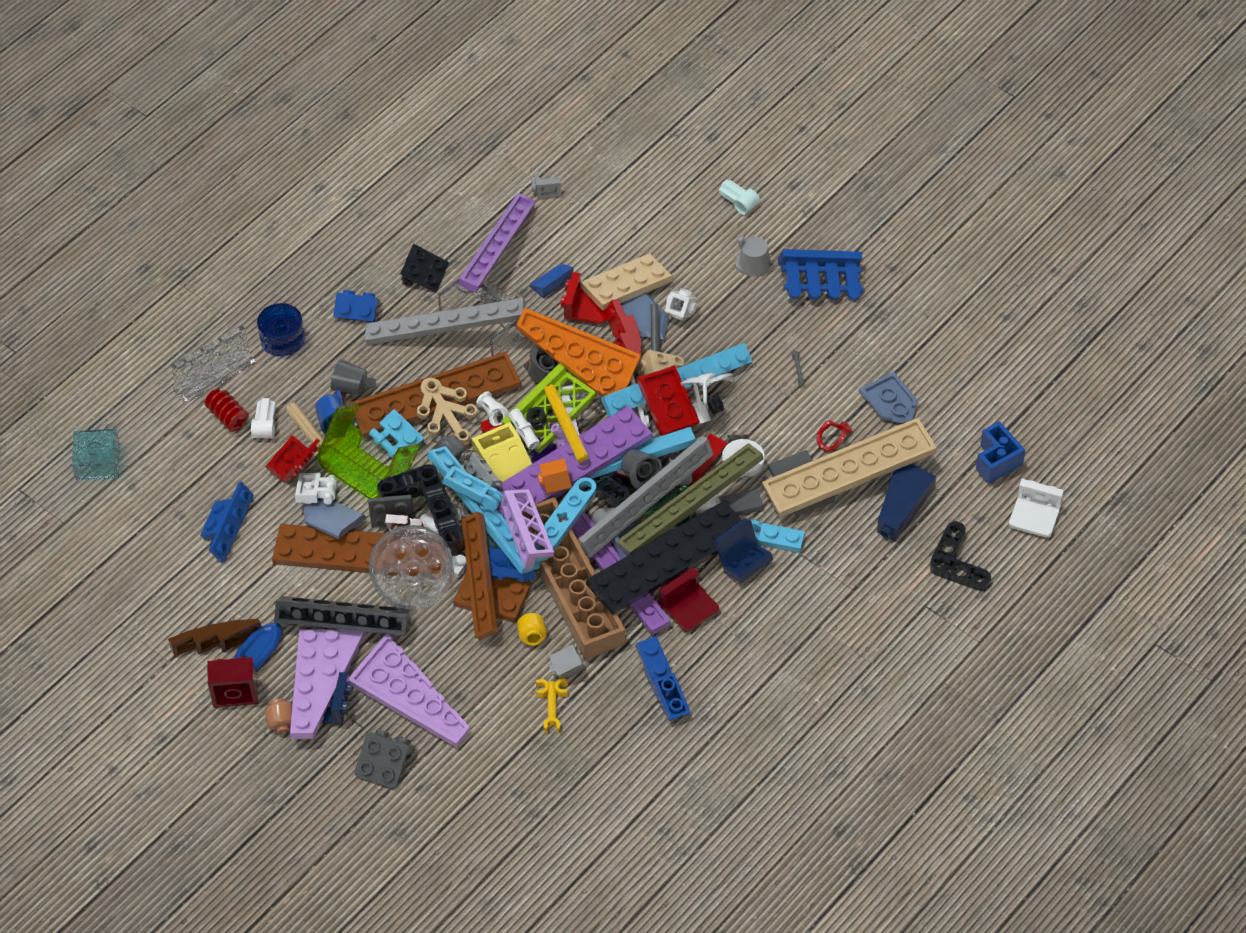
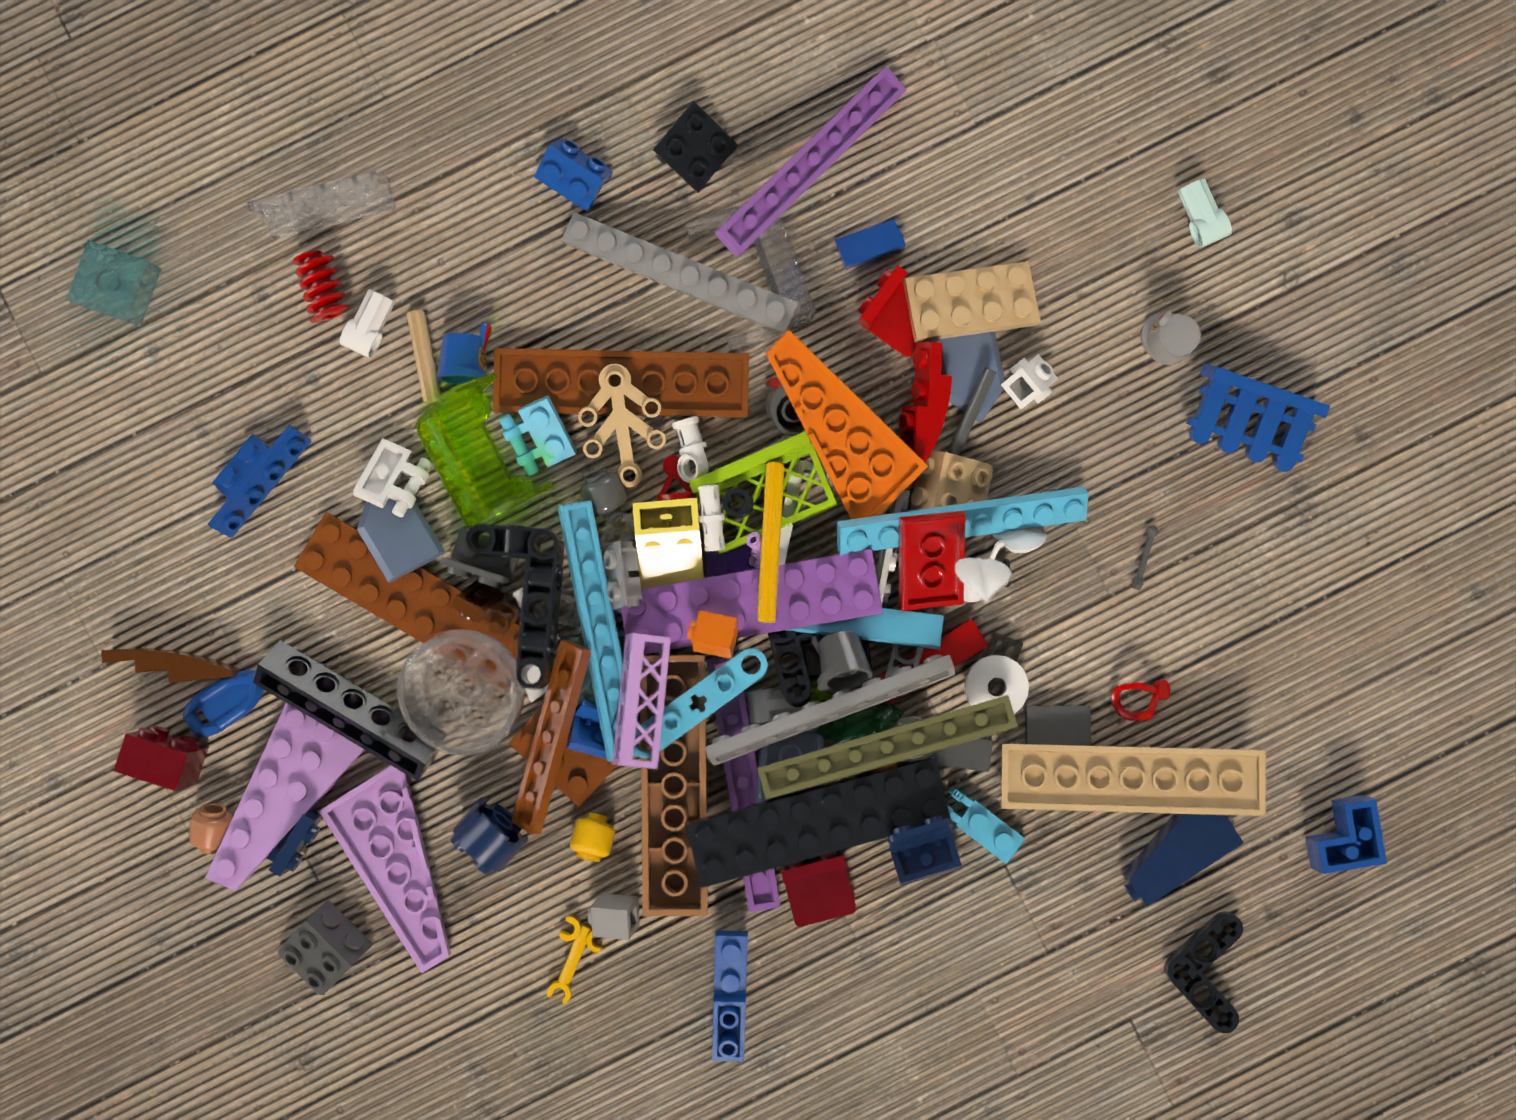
camera: 15 degrees right, 35 degrees up
(281, 329) = (432, 162): clear blue wheel -> none
(291, 459) = (380, 414): red bracket -> none
(350, 378) = (511, 309): dark grey hat -> none
(465, 646) = (488, 836): none -> dark blue brick
(473, 488) = (592, 601): medium azure hinge -> none
(546, 187) = (934, 72): light grey bracket -> none
(890, 399) = (1247, 668): sand blue tile -> none
(1036, 508) = (1351, 945): white bracket -> none

